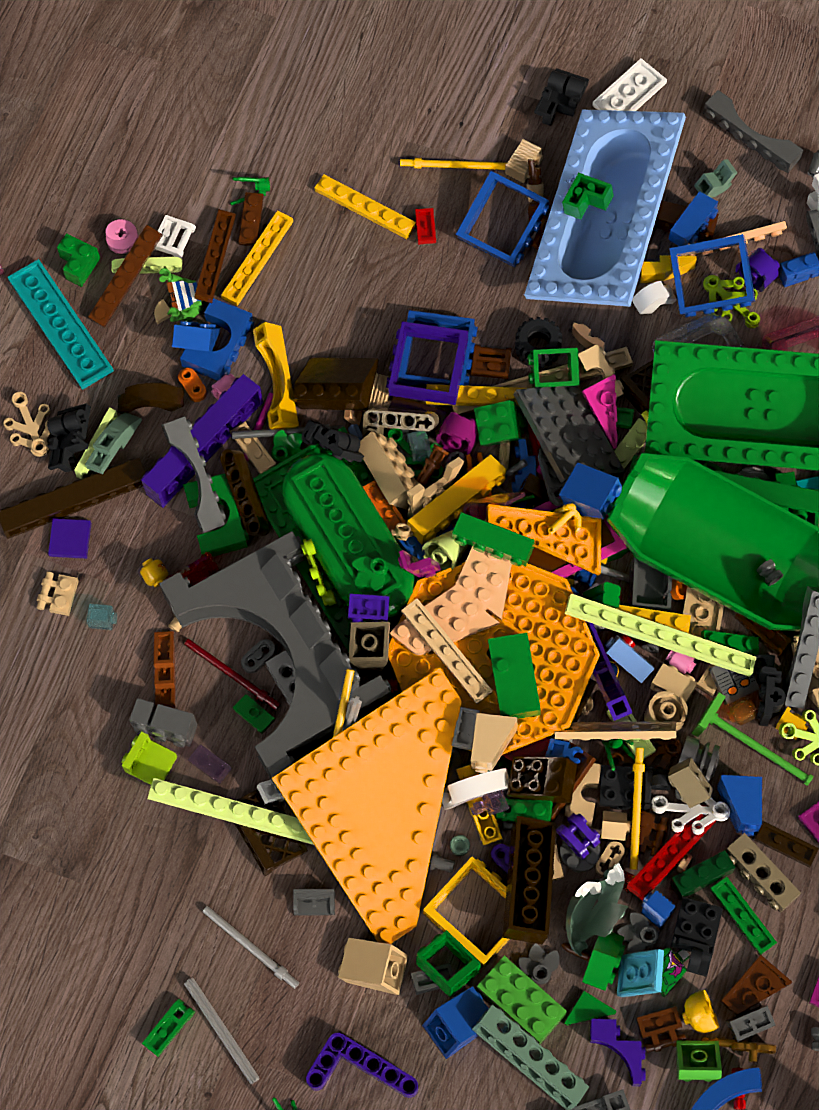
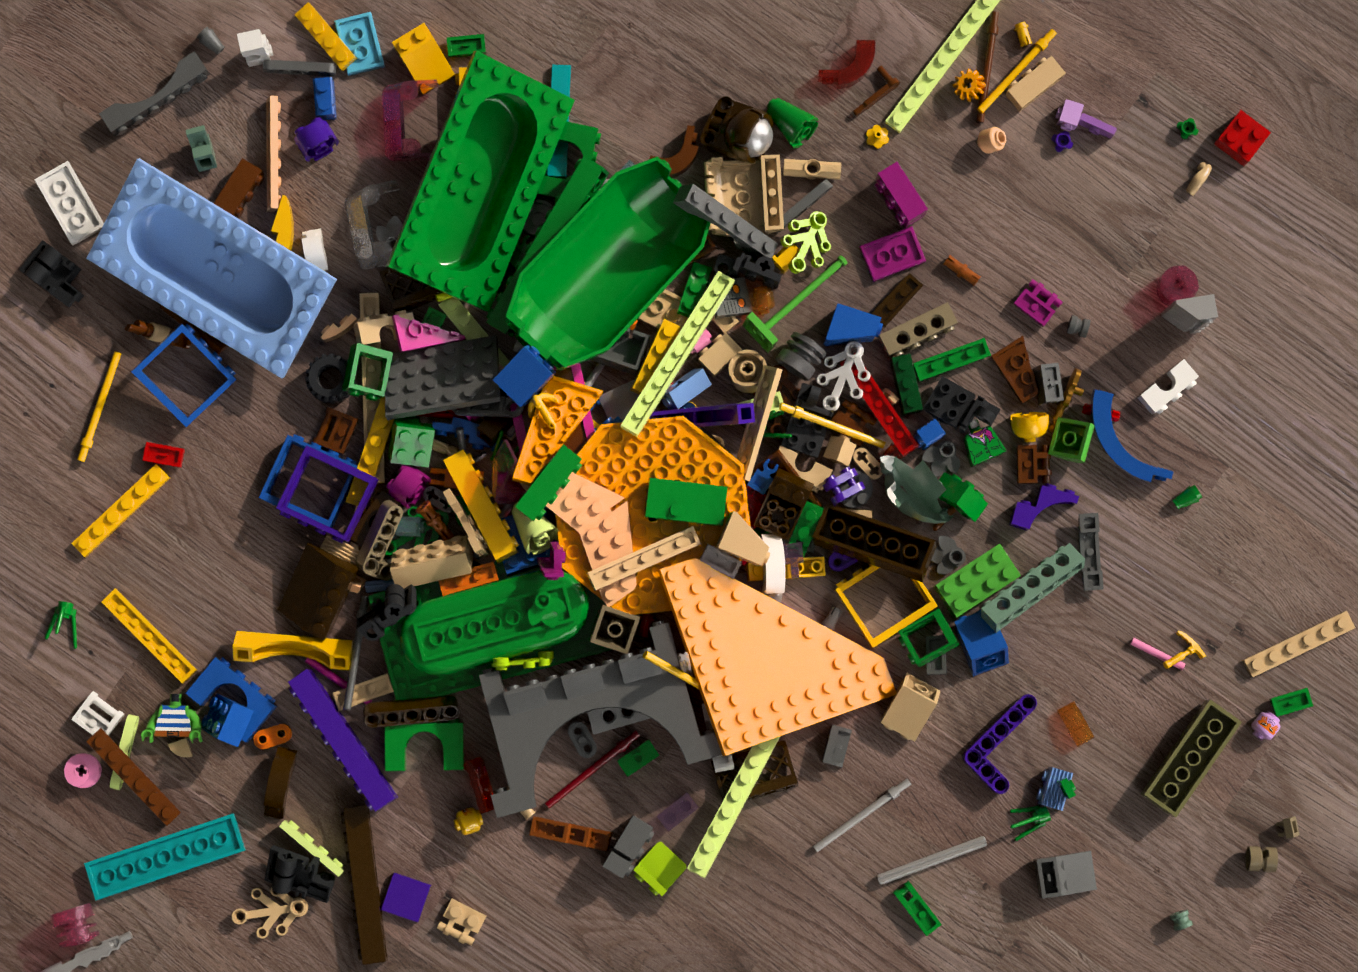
camera: 85 degrees left, 15 degrees up
(80, 257) = (95, 817): green brick -> none
(101, 617) = (500, 883): clear light blue brick -> none
(110, 440) = (316, 831): sand green slope -> none
(207, 510) = (422, 754): dark grey arch -> none
(215, 256) = (137, 678): reddish brown plate -> none
(222, 385) = (286, 704): bright pink brick -> none
(251, 219) = (101, 631): reddish brown plate -> none
(289, 444) = (368, 656): green plate -> none
(368, 608) = (581, 621): dark purple bracket -> none
(402, 531) = (503, 568): tan plate -> none
(459, 845) = (817, 597): sand green tile -> none
(518, 164) = (113, 330): tan brick -> none
(586, 192) = (191, 284): green brick -> none
(588, 1008) = (998, 523): green tile -> none
(605, 594) = (624, 396): green brick -> none
(640, 973) = (985, 467): medium azure tile -> none
(690, 783) = (824, 369): dark tan brick -> none
(694, 220) = (246, 185): blue brick -> none
(719, 289) = (334, 176): lime plant -> none
(726, 305) = (283, 182): blue window -> none
(769, 572) = (637, 231): dark grey wheel -> none

